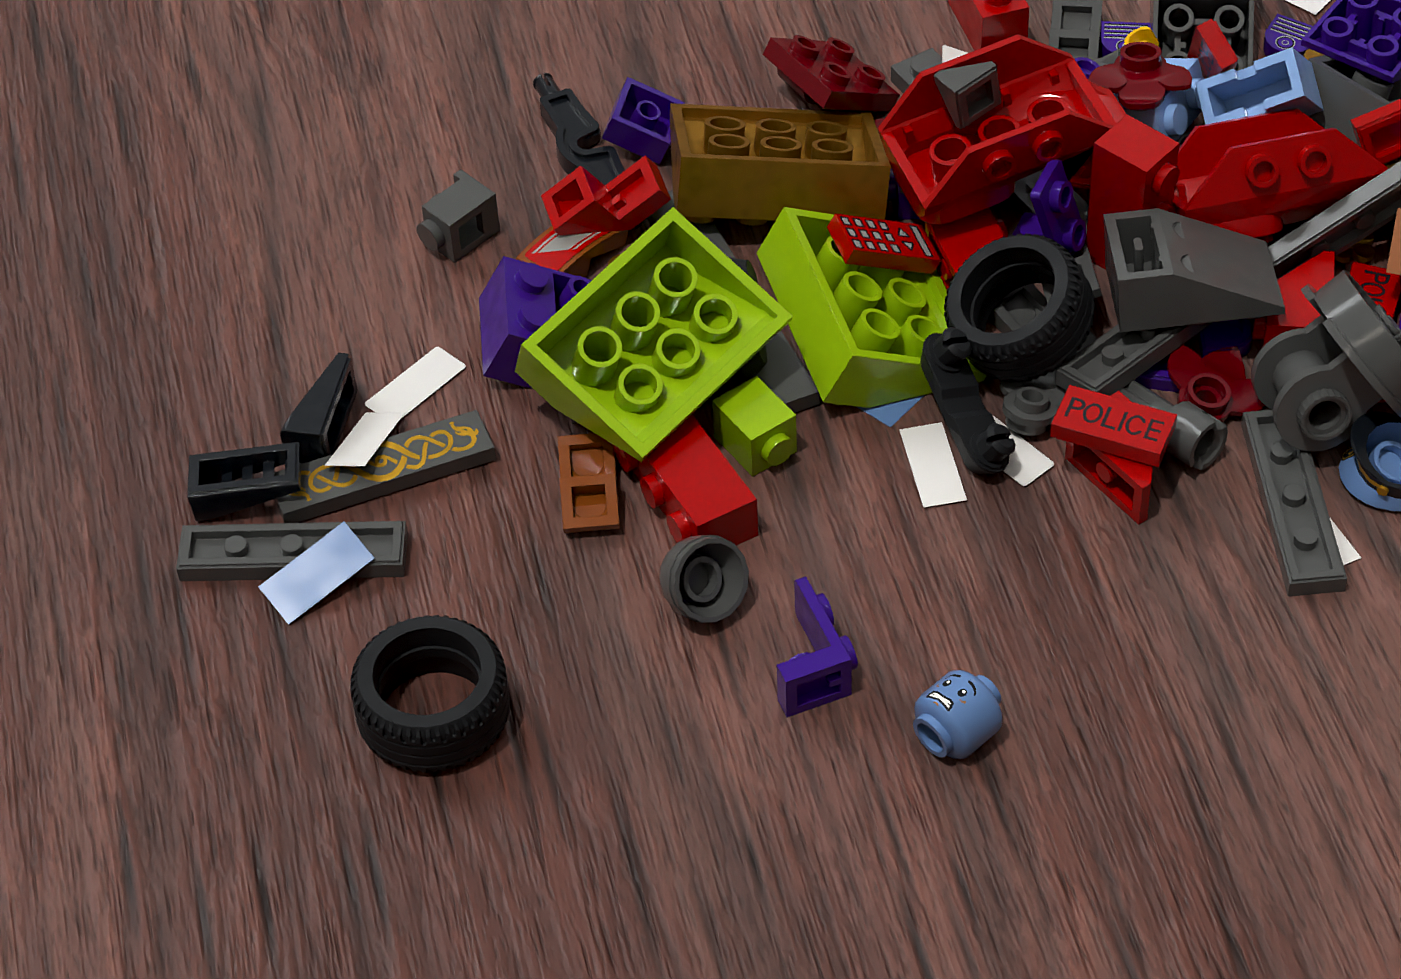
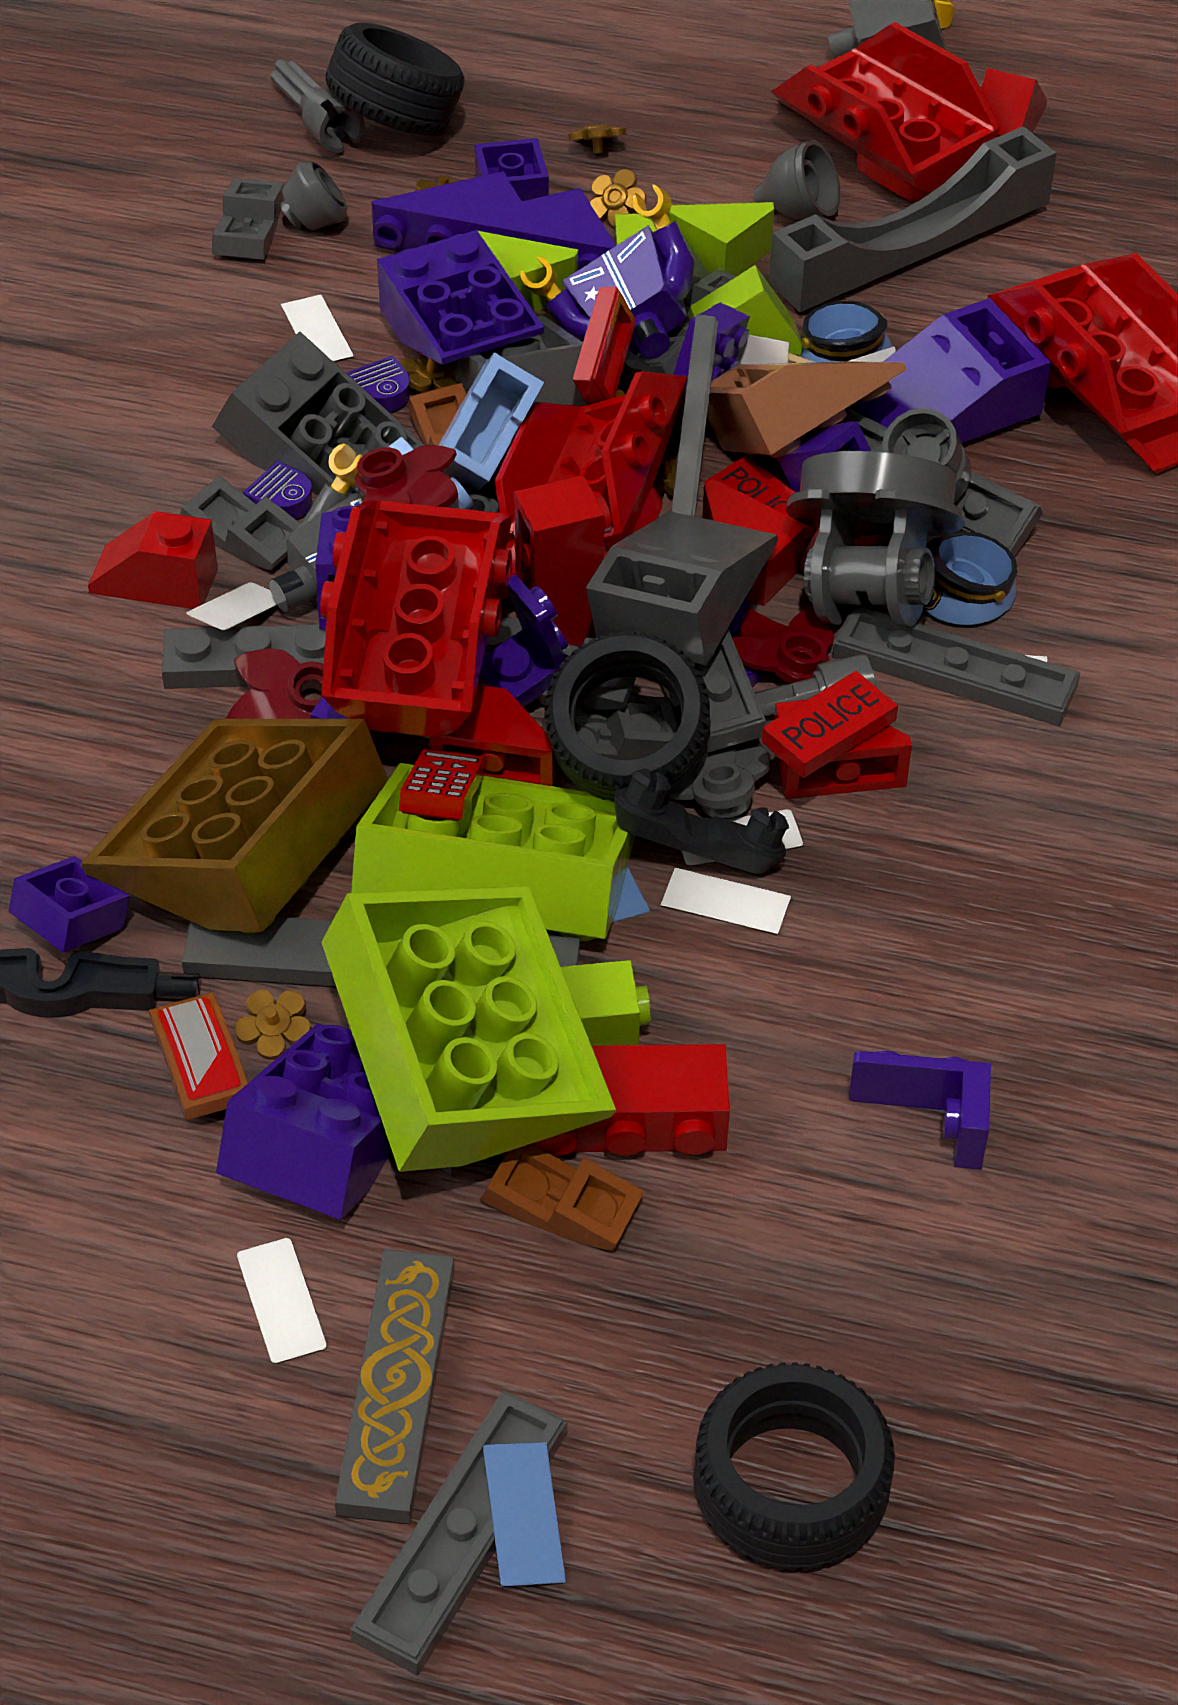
camera: 65 degrees left, 0 degrees up
(213, 477) = (309, 1587): black slope -> none
(323, 411) = (295, 1408): black slope -> none
(364, 439) = (351, 1378): white sticker -> none
(459, 218) = (70, 1135): dark grey brick -> none
(588, 206) = (183, 982): red slope -> none
(704, 578) = (780, 1147): dark grey helmet -> none
(830, 74) = (123, 722): dark red plate -> none
(958, 714) = (1086, 1020): medium blue head -> none
(969, 91) = (368, 592): dark grey slope -> none
(1212, 49) = (417, 418): red tile -> none

